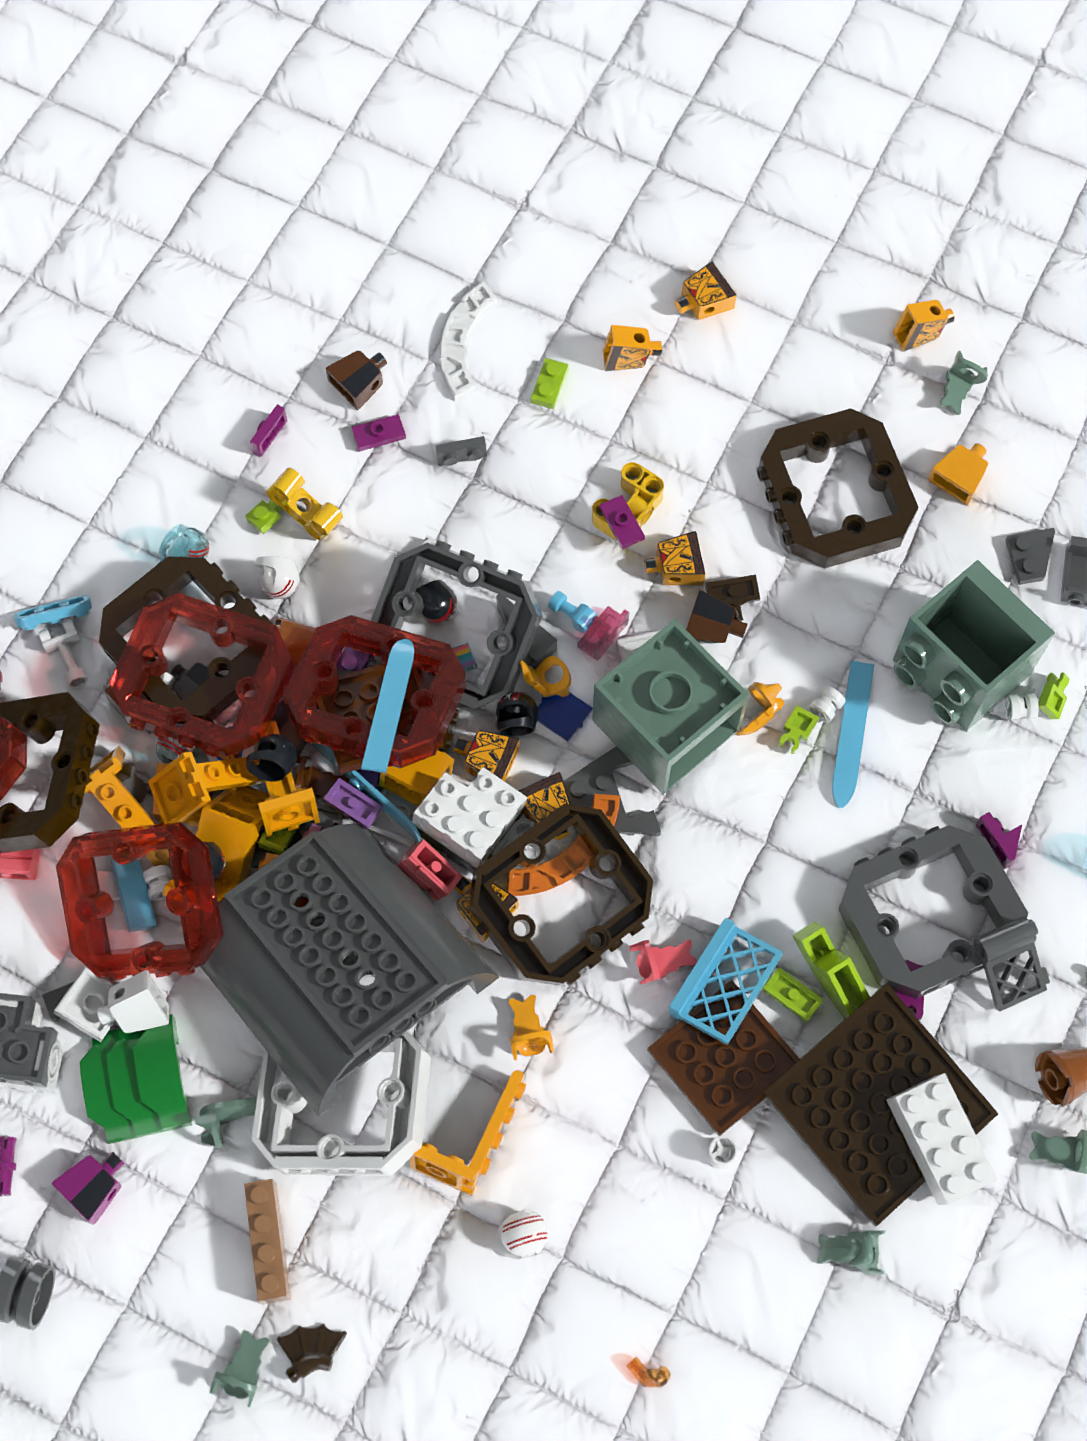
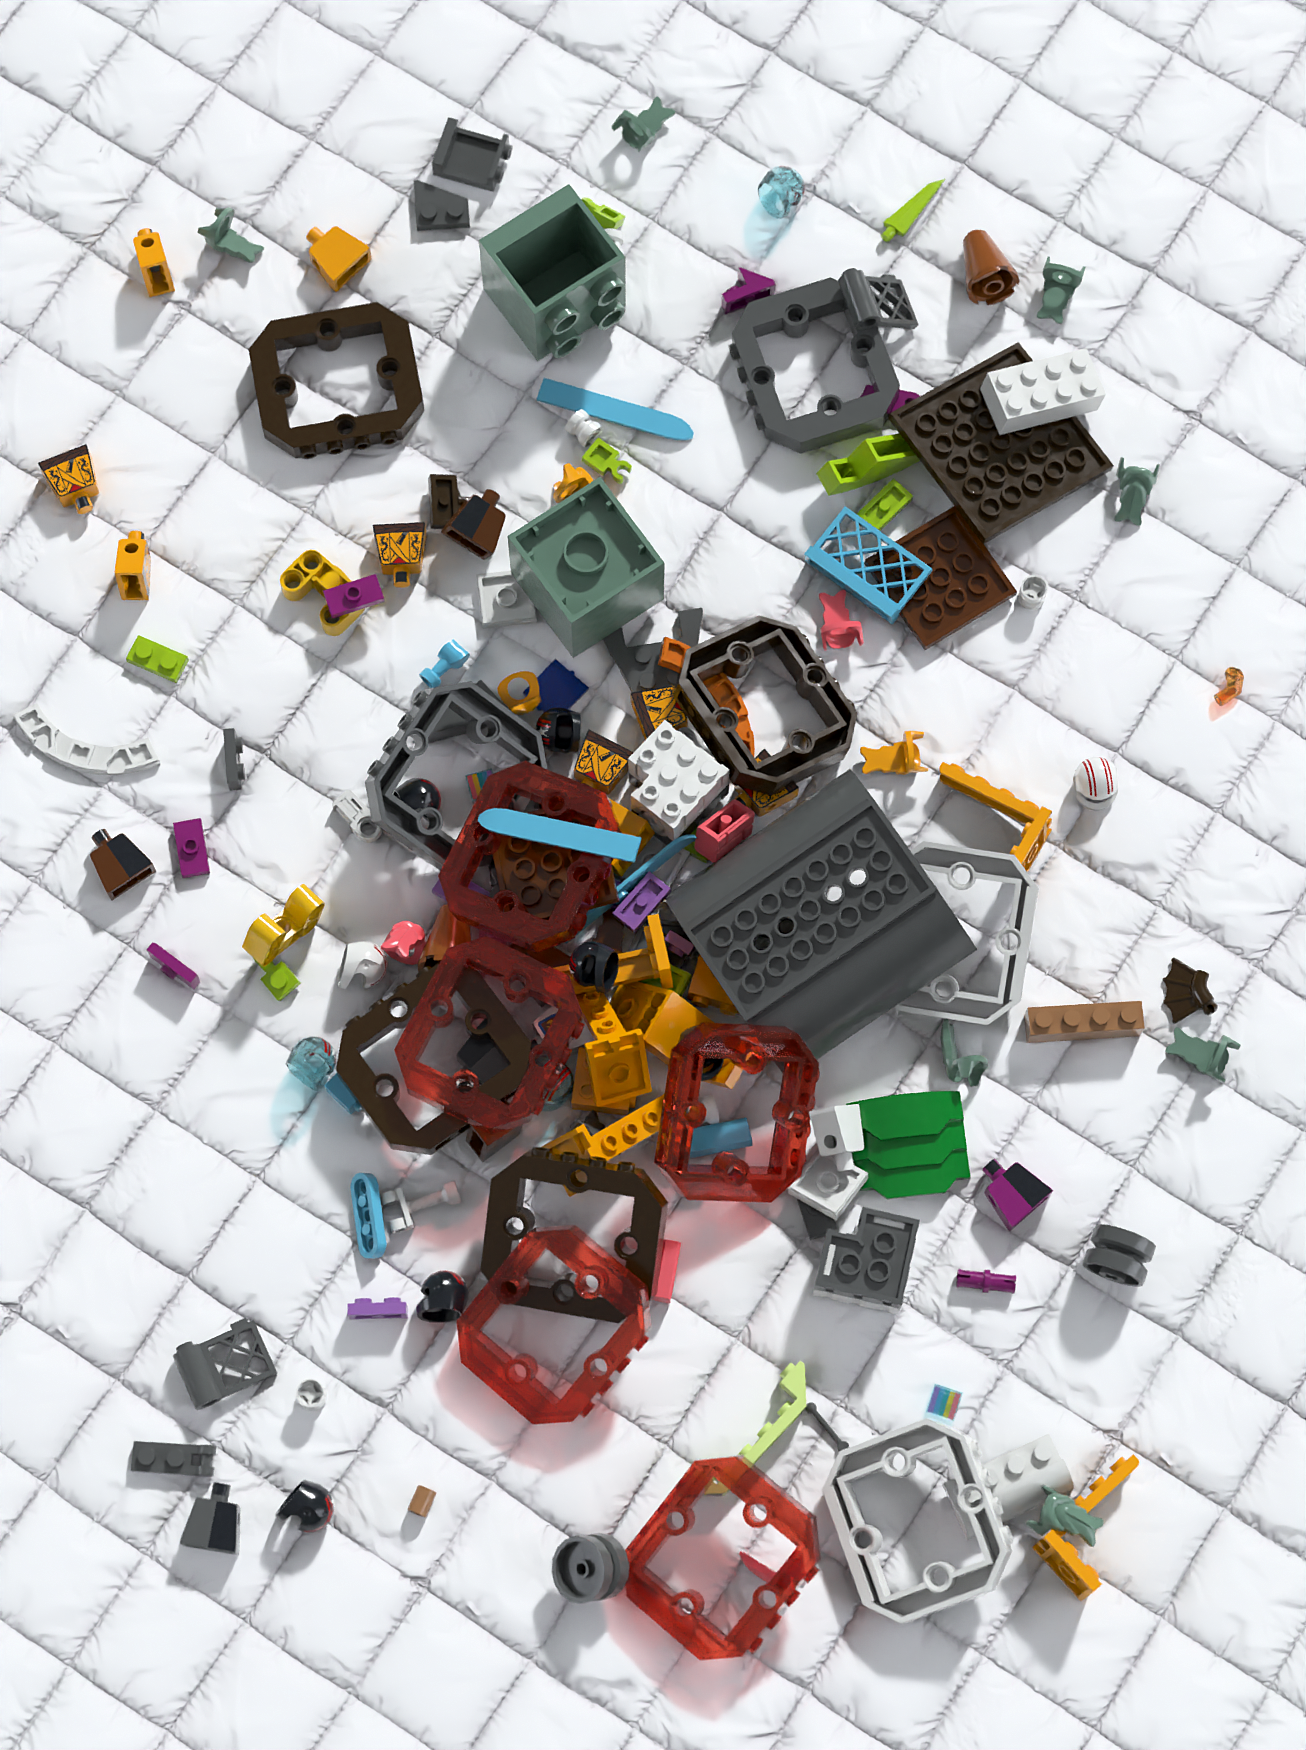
camera: 85 degrees left, 5 degrees up
(299, 602) = (401, 939): none -> coral hair
(603, 632) = (472, 635): clear pink panel -> none

